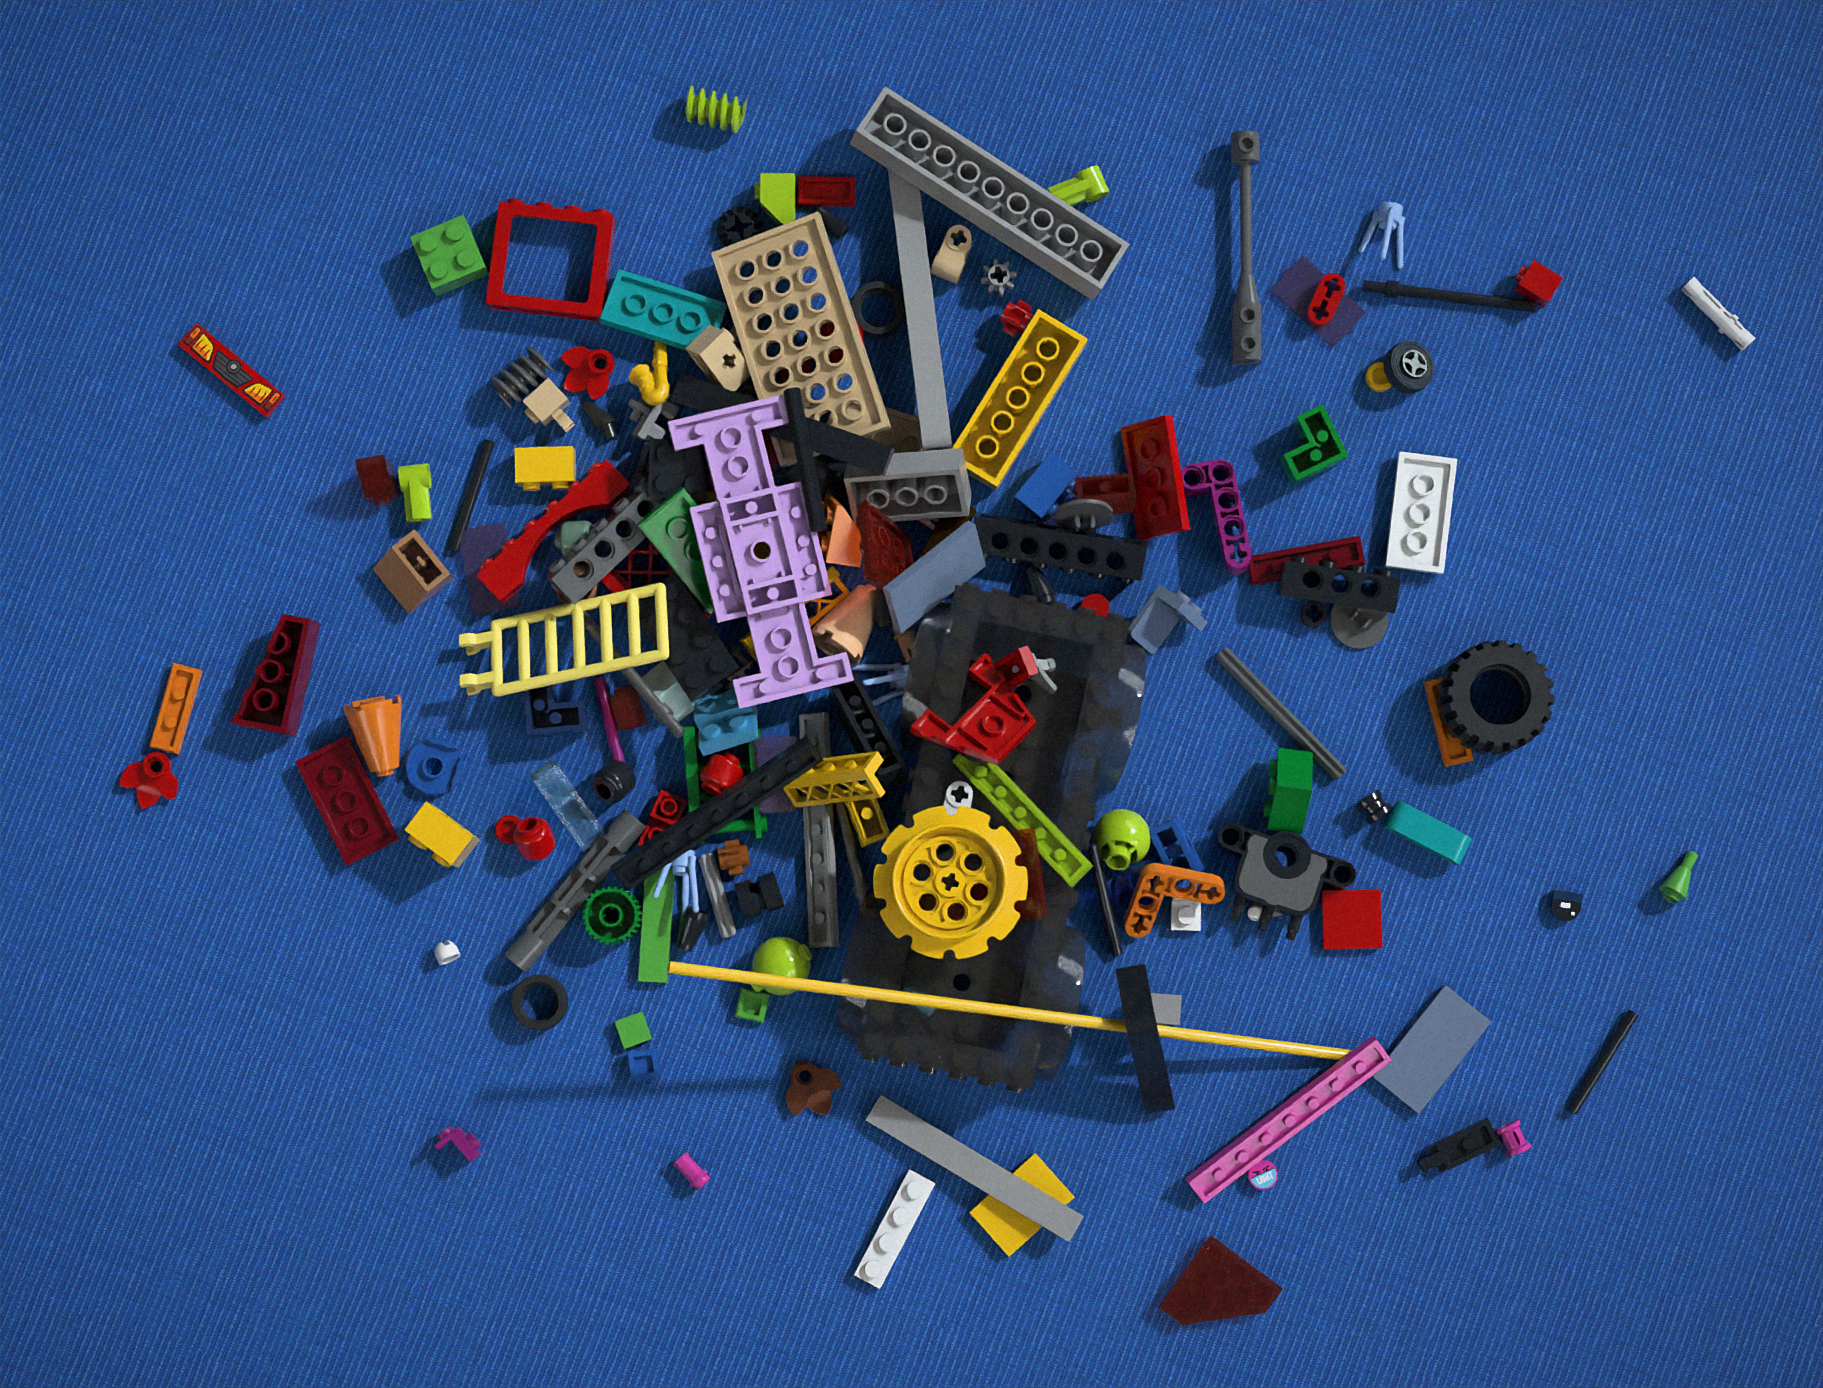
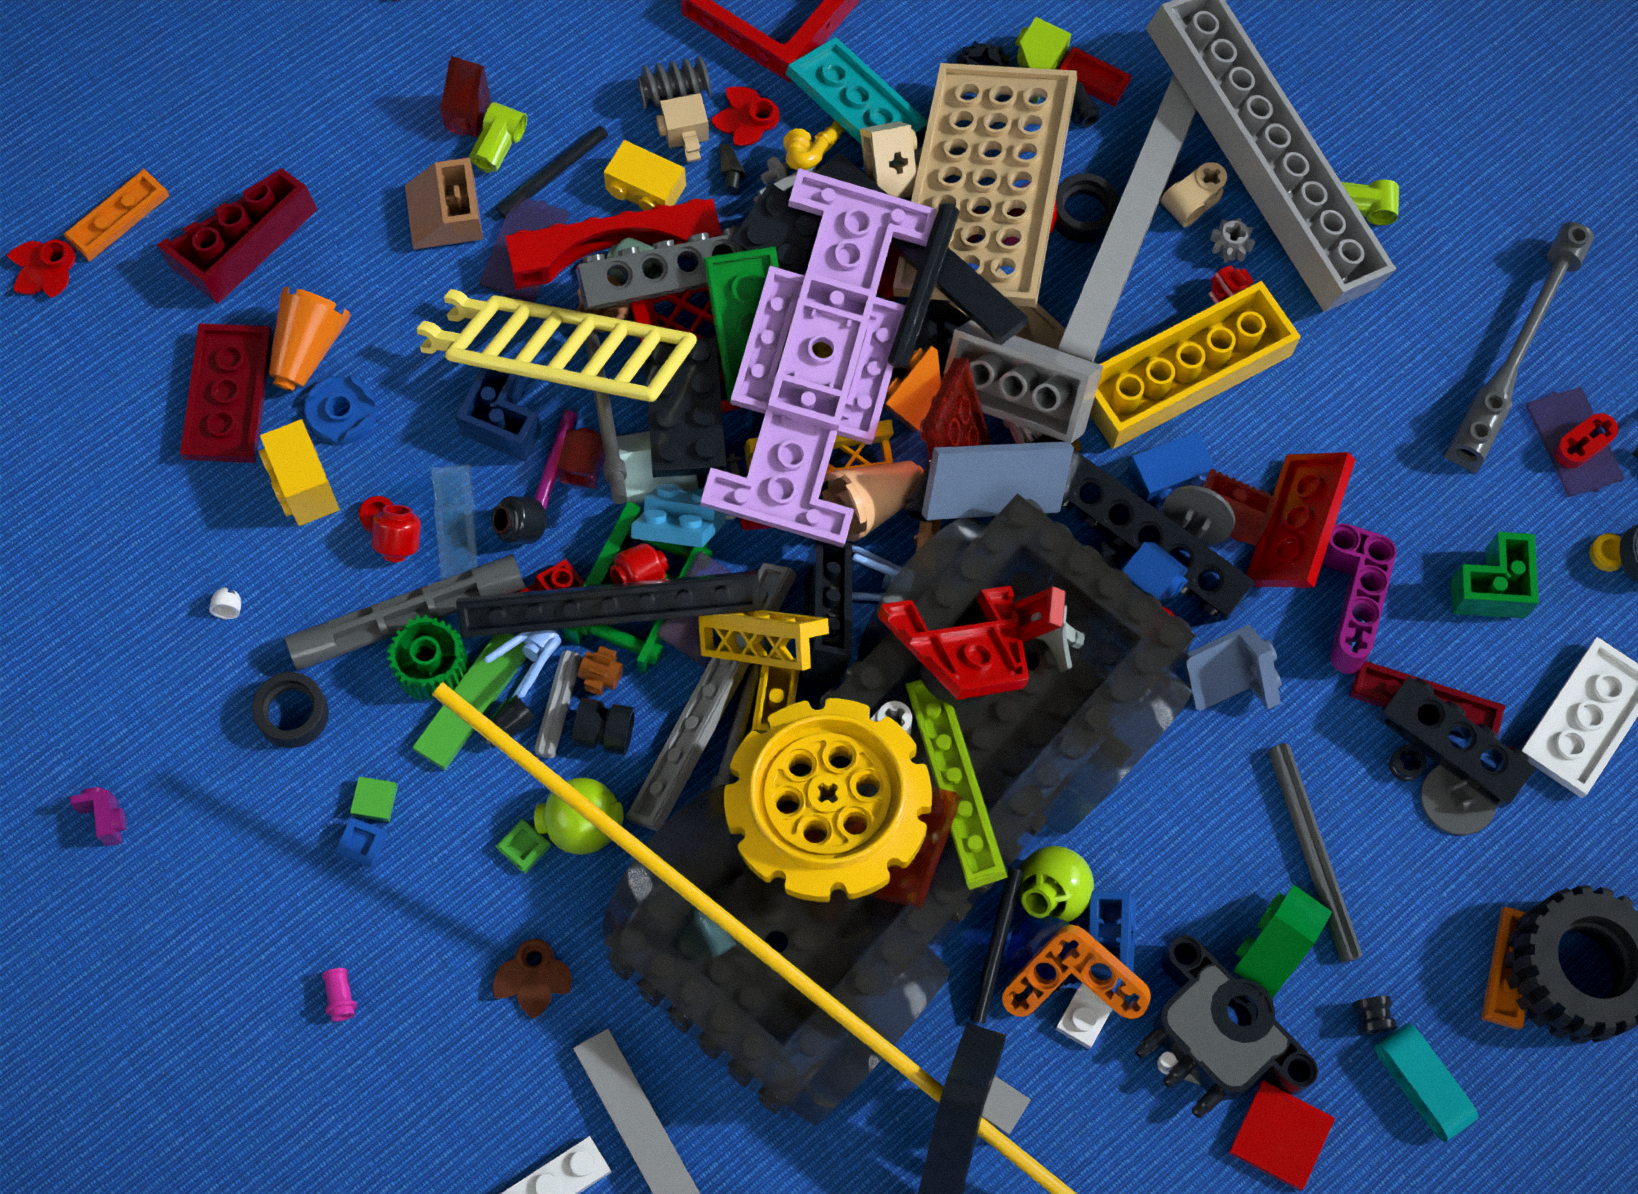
camera: 25 degrees right, 15 degrees down
(1078, 582) = (1156, 571): none -> blue brick

